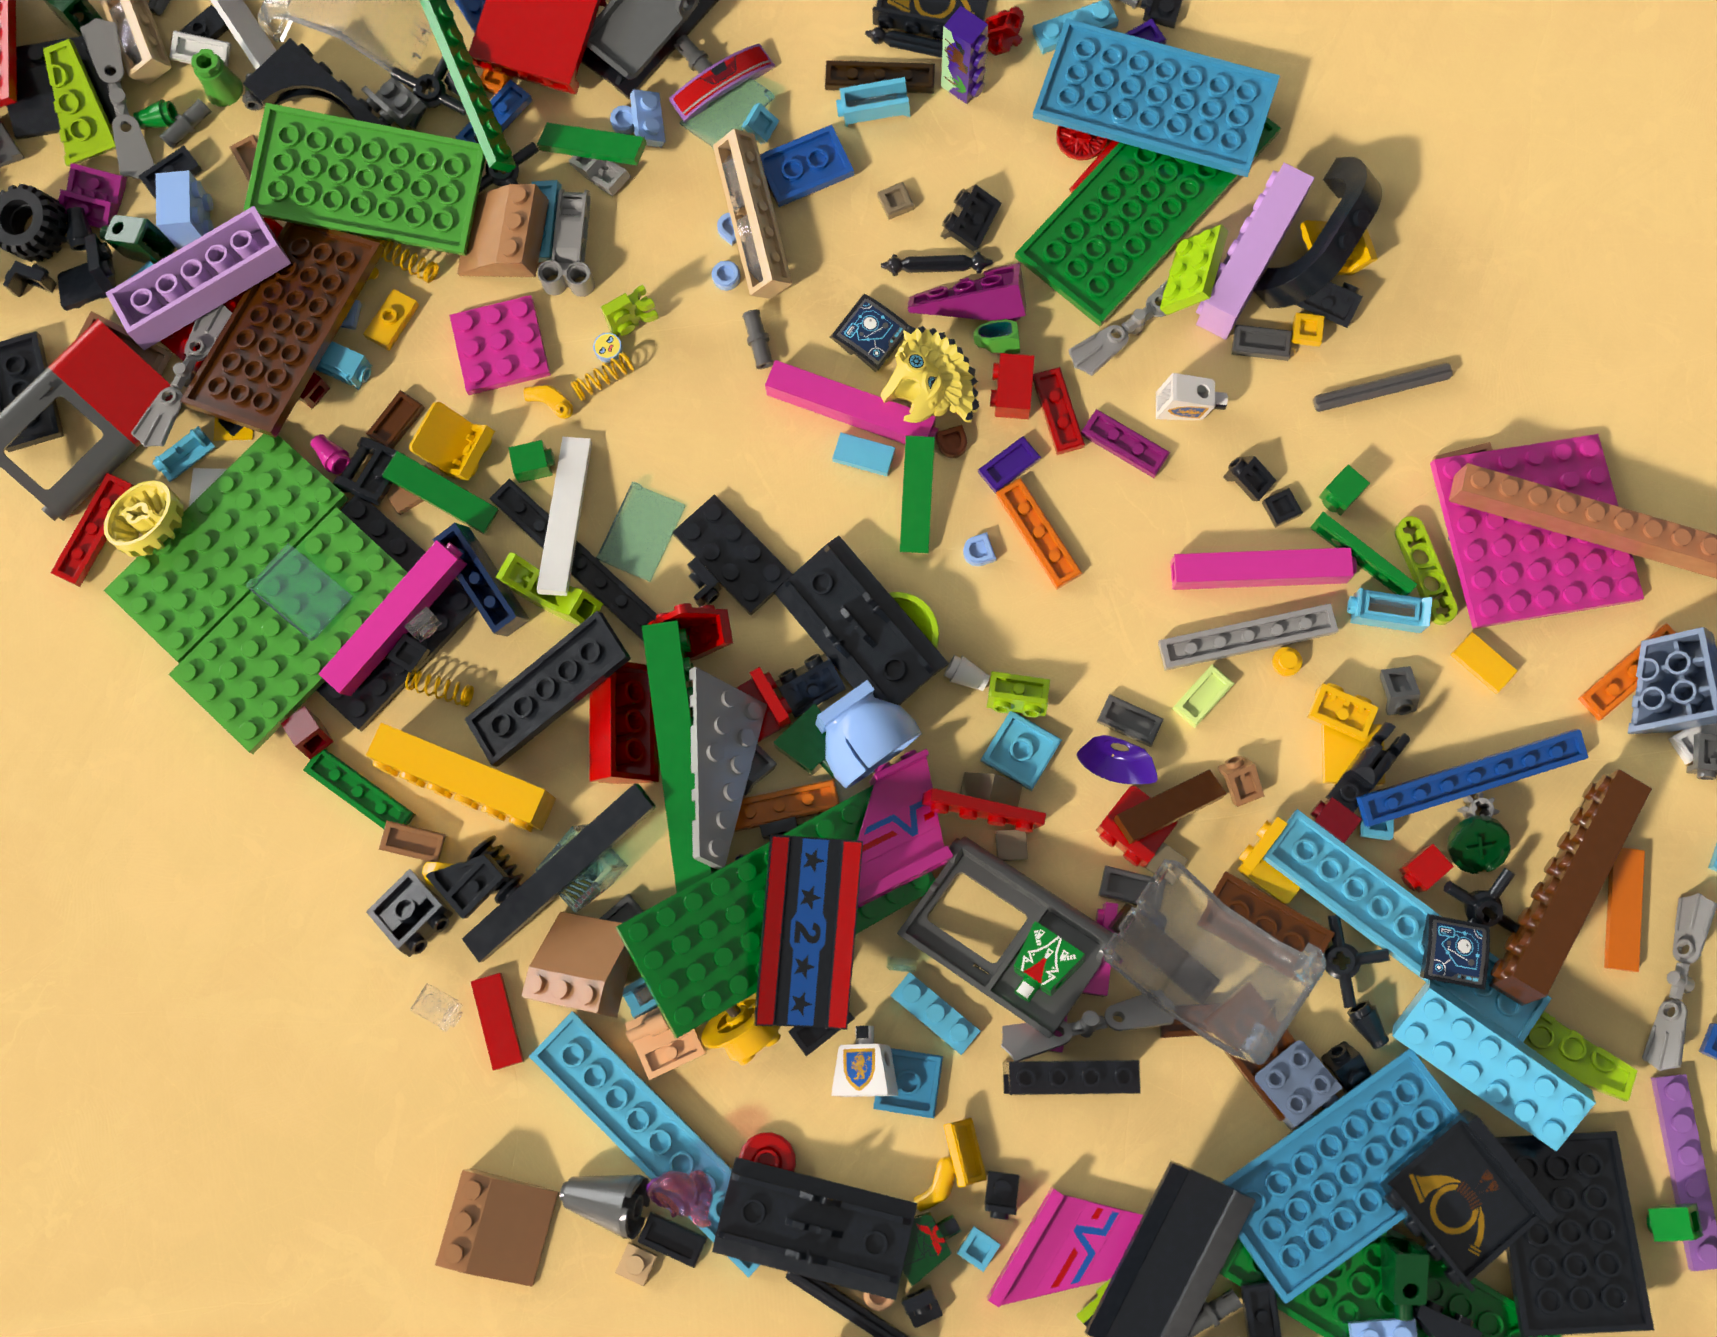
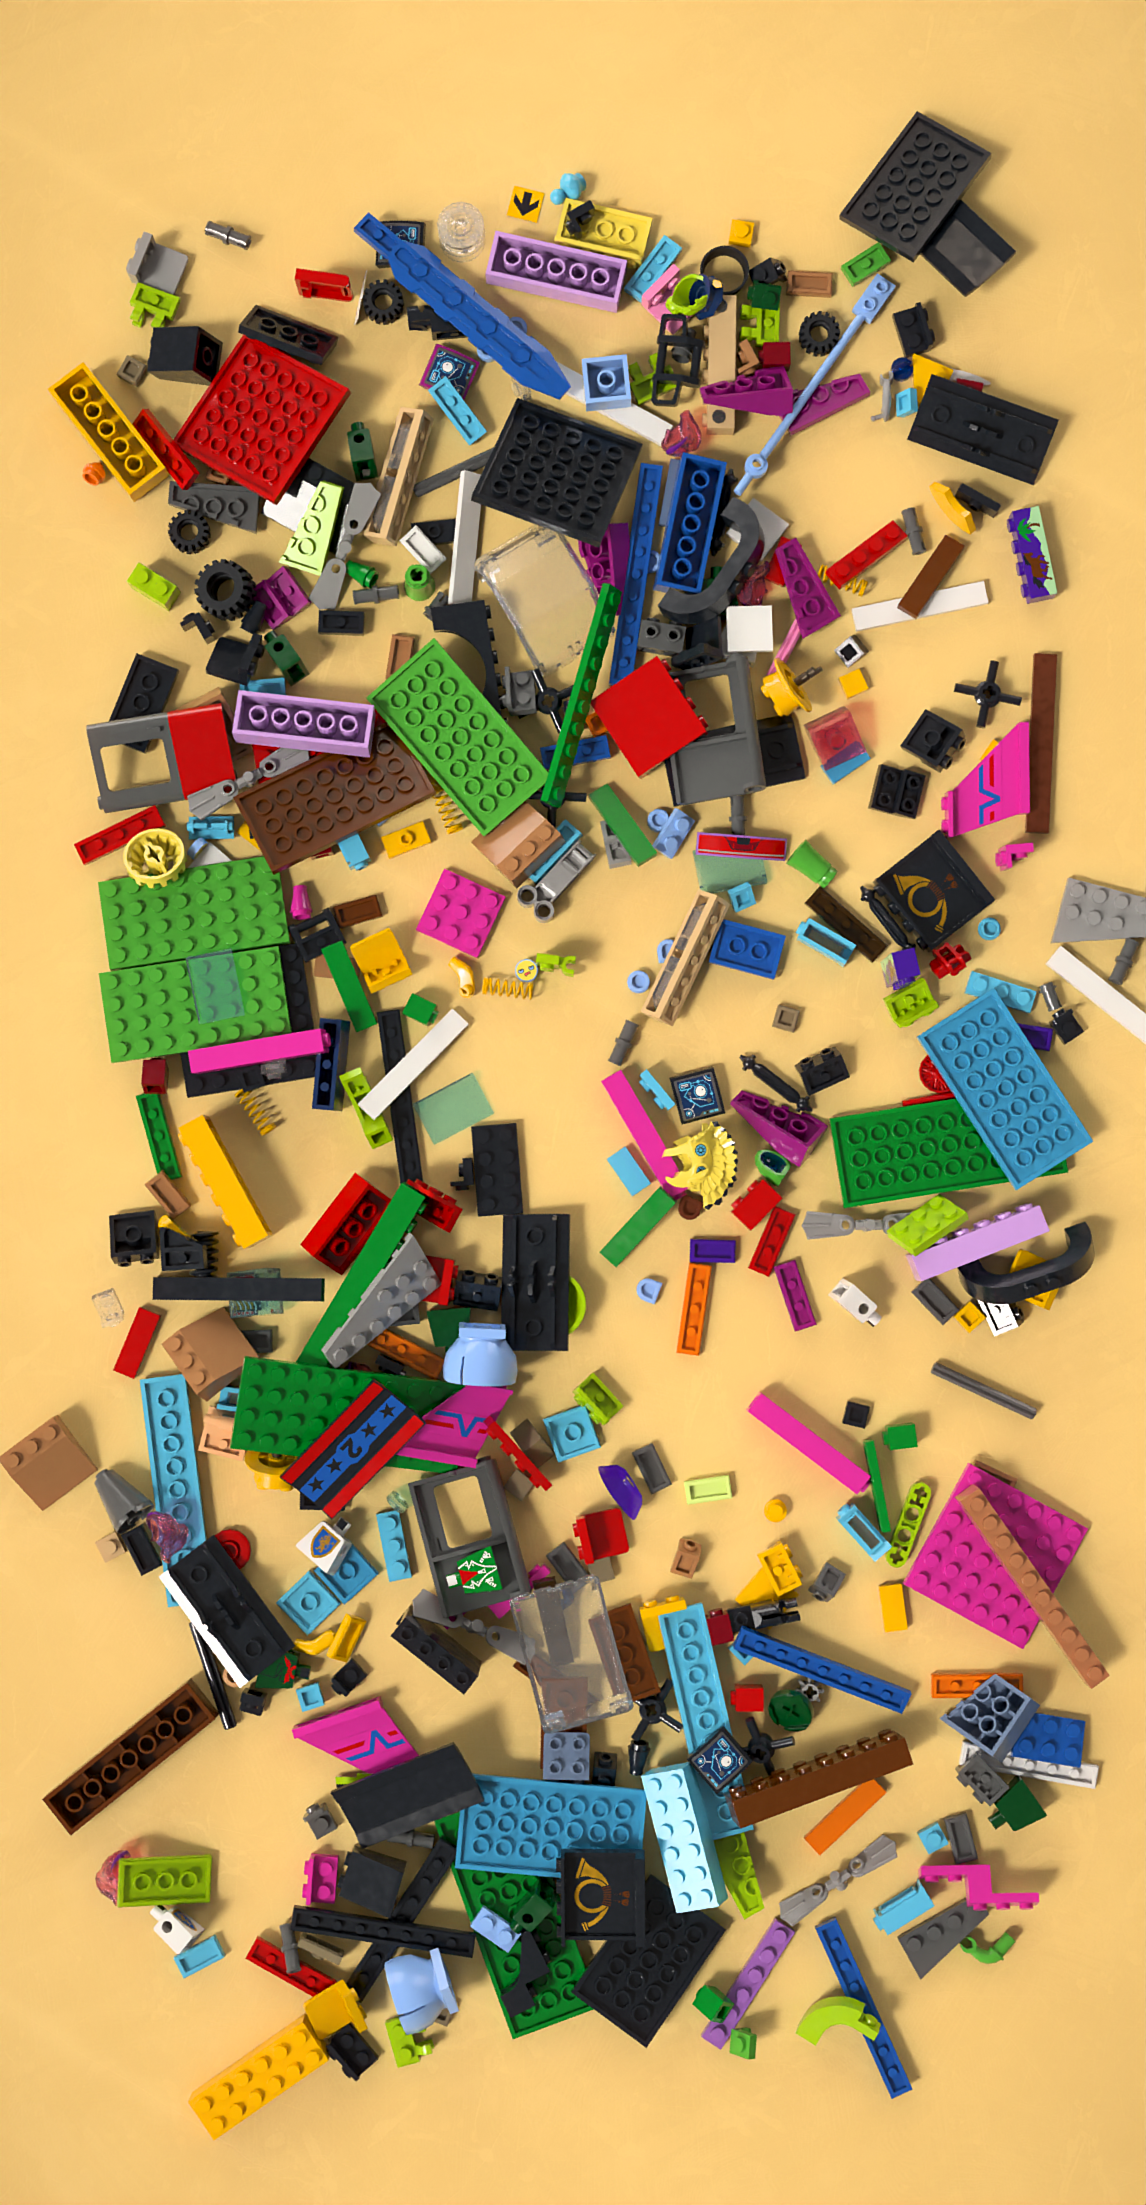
camera: 35 degrees right, 10 degrees up
(182, 207) = (330, 663): light blue brick -> none
(182, 481) = (197, 847): none -> light blue tile
(547, 688) = (317, 1169): black plate -> none
(802, 45) = (812, 864): none -> bright green plant
(819, 354) = (649, 1083): none -> medium azure plate
(895, 1149) = (308, 1602): none -> medium azure tile
(966, 673) = (577, 1361): white cone -> none
(1000, 95) = (910, 1003): none -> lime bracket
(1169, 806) = (628, 1541): reddish brown tile -> none
(1247, 637) = (764, 1477): light grey plate -> none
(1250, 476) = (851, 1380): black bracket -> none

